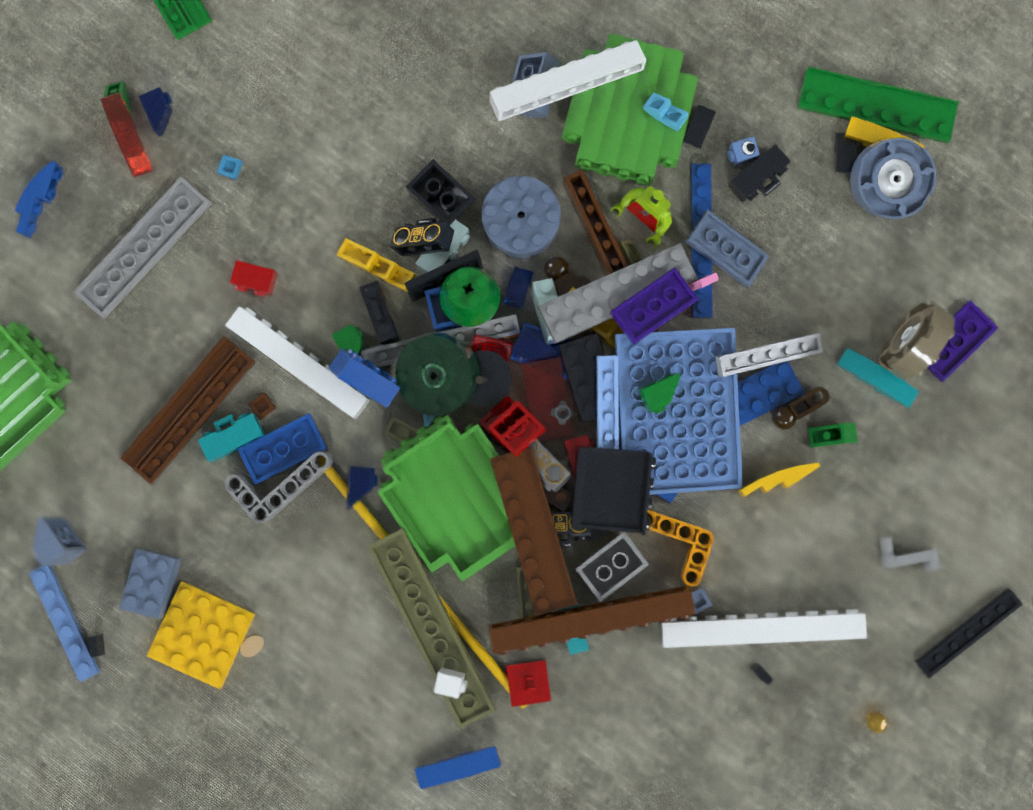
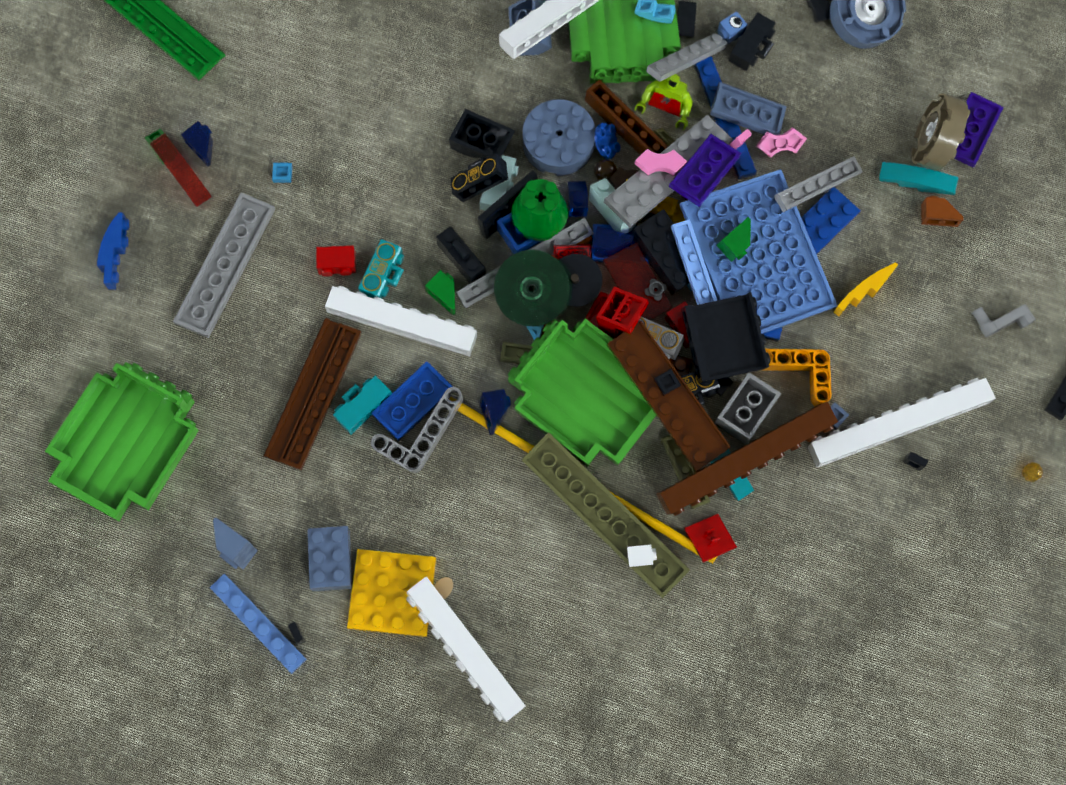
camera: 20 degrees left, 10 degrees down
(250, 717) = (465, 649): none -> white brick
(262, 406) = (380, 369): reddish brown tile -> none
(293, 302) = (377, 275): none -> teal piece
(364, 376) = (469, 309): blue brick -> none
(375, 264) = (437, 215): yellow slope -> none
(458, 767) = (673, 634): blue slope -> none
(536, 518) = (667, 382): none -> black tile
(568, 236) = (606, 140): none -> blue dish
(618, 286) = (653, 162): none -> bright pink tile
(681, 173) = (686, 57): none -> light grey plate
(740, 293) = (772, 144): none -> bright pink tile
(785, 416) = (852, 233): dark brown piece -> none
(832, 435) = (898, 237): green slope -> none
(885, 421) = (939, 212): none -> dark orange slope

